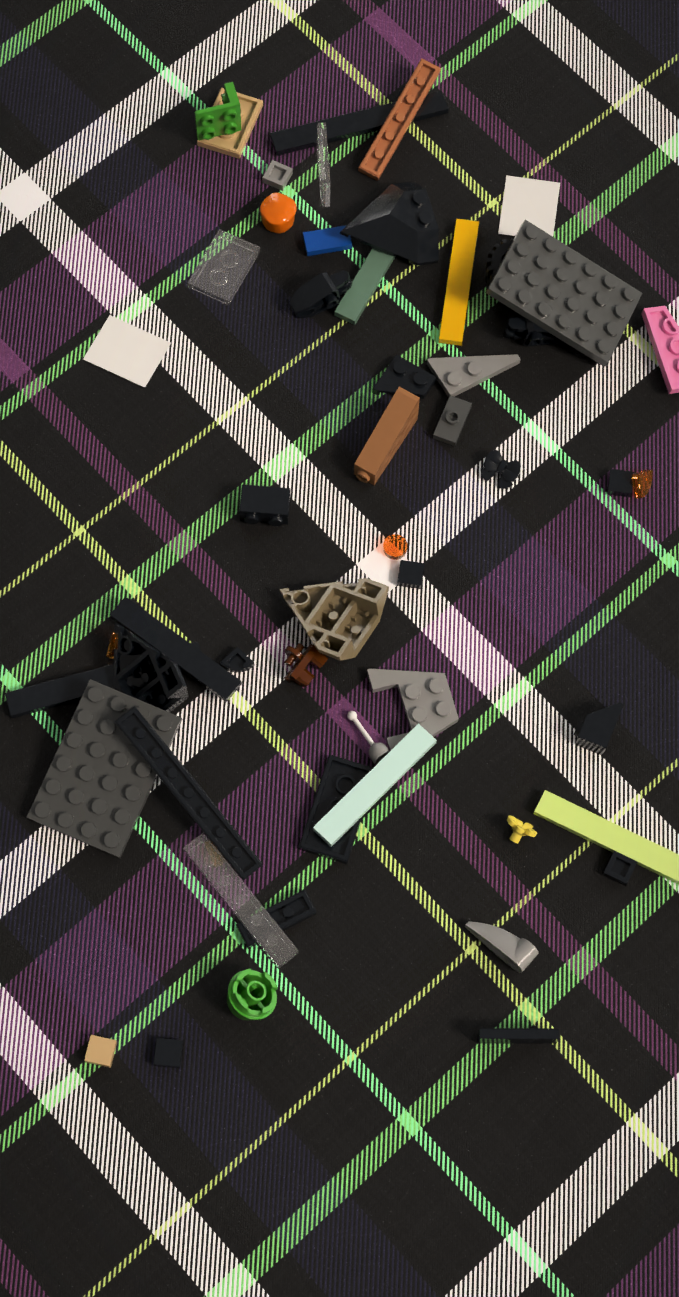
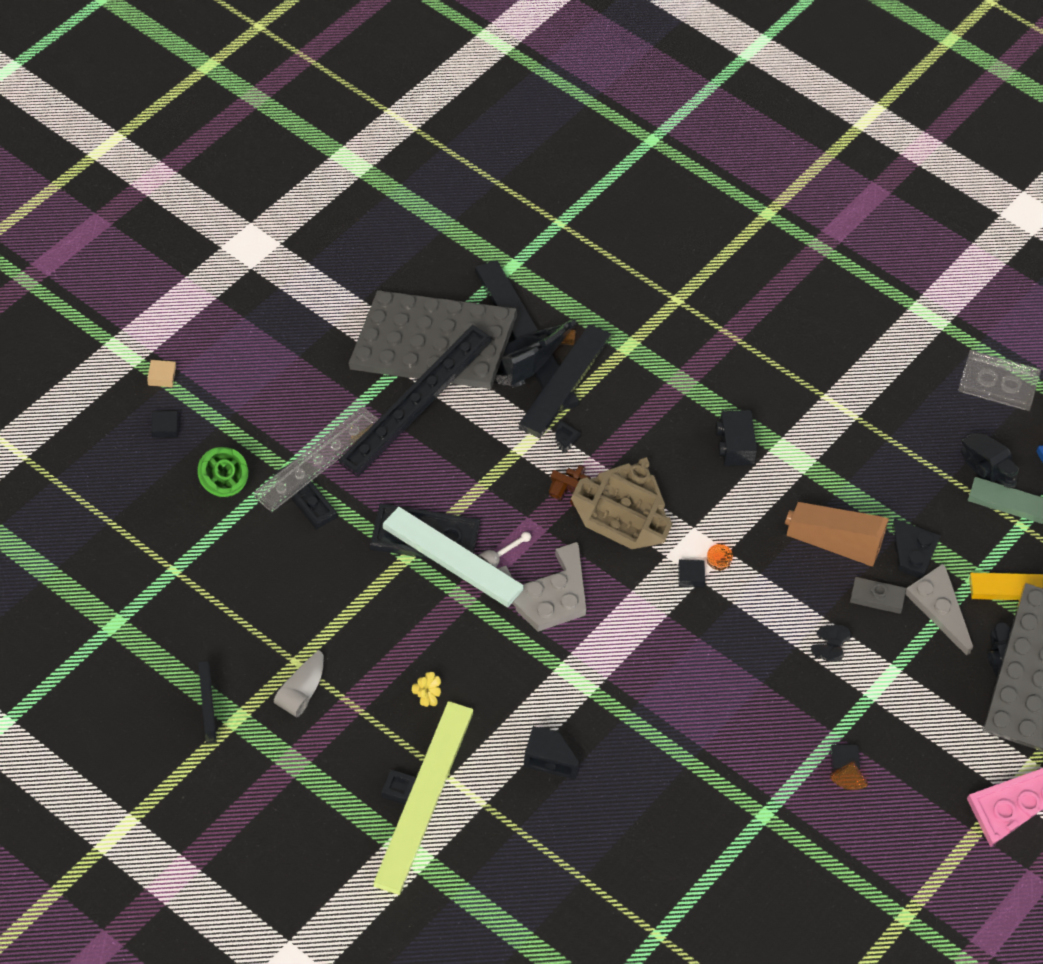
camera: 80 degrees right, 15 degrees down
(127, 351) = (881, 314): white sticker -> none

